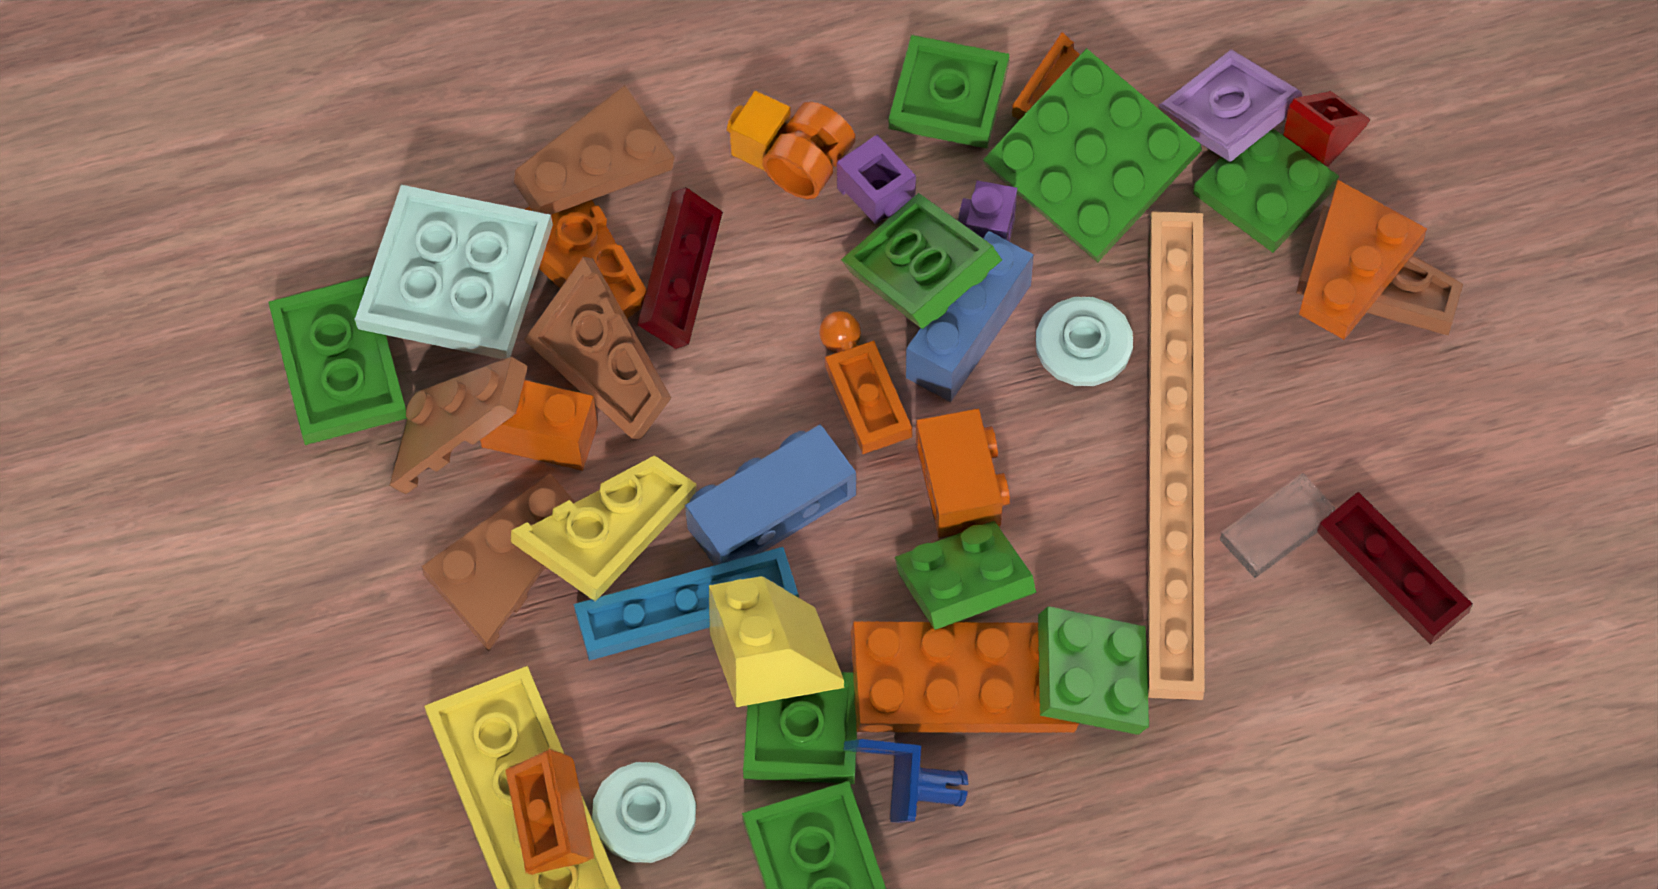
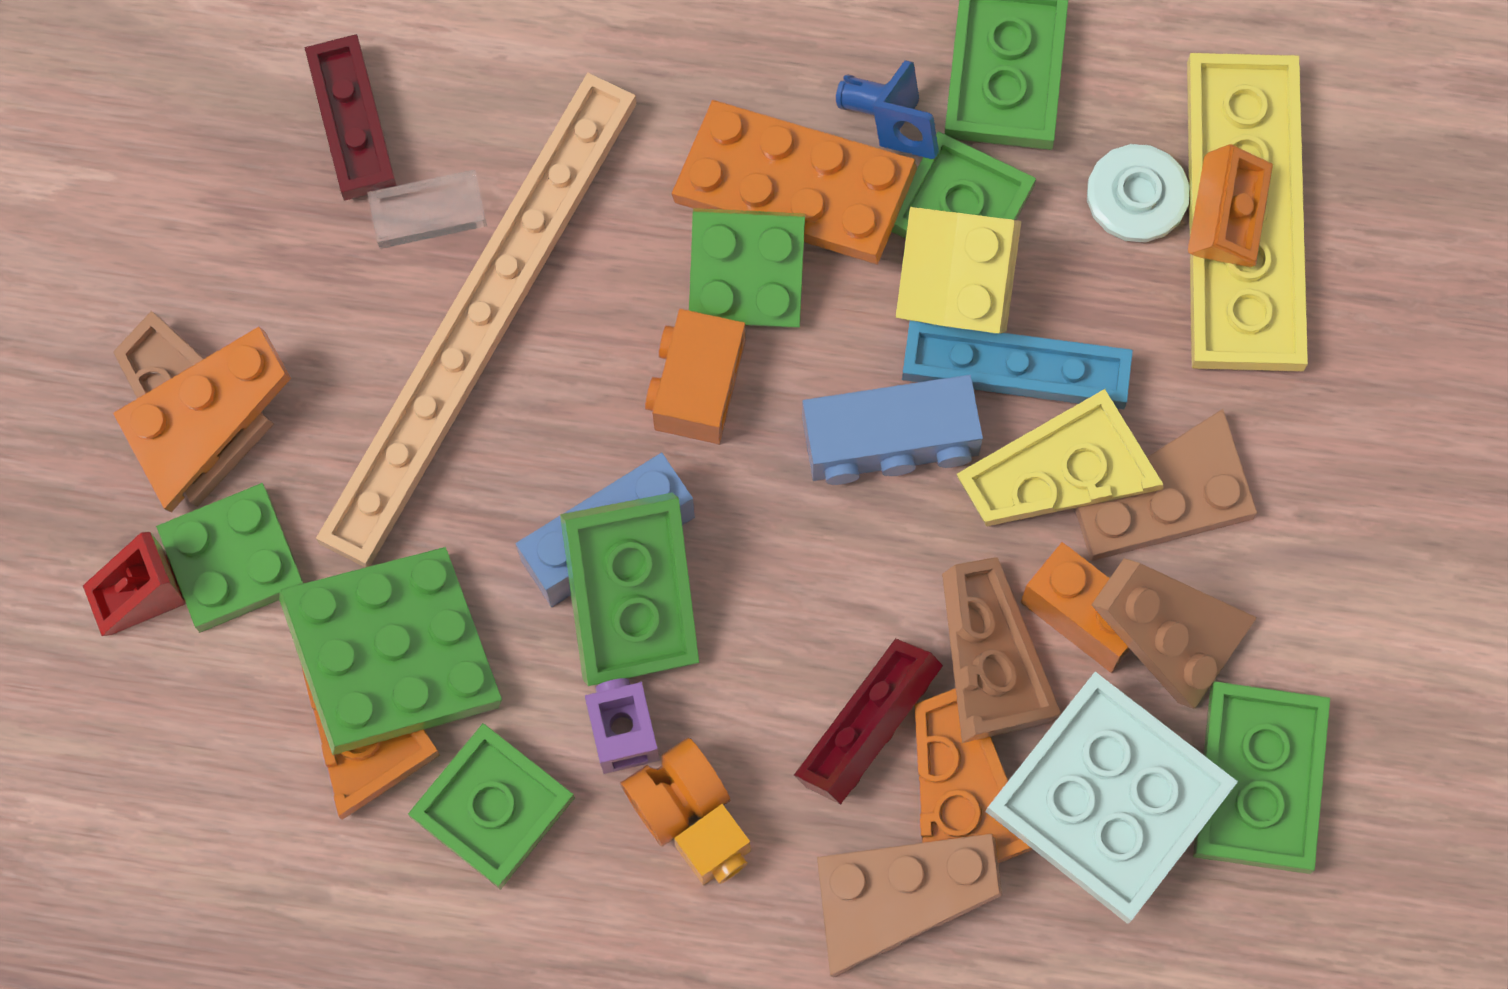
camera: 155 degrees left, 10 degrees up
(863, 385) = (744, 514): orange plate -> none
(990, 210) = (534, 628): medium lavender brick -> none
(1084, 341) = (505, 468): light aqua wheel -> none
(1093, 670) = (676, 132): bright green plate -> none
(1230, 105) = (215, 651): lavender tile -> none

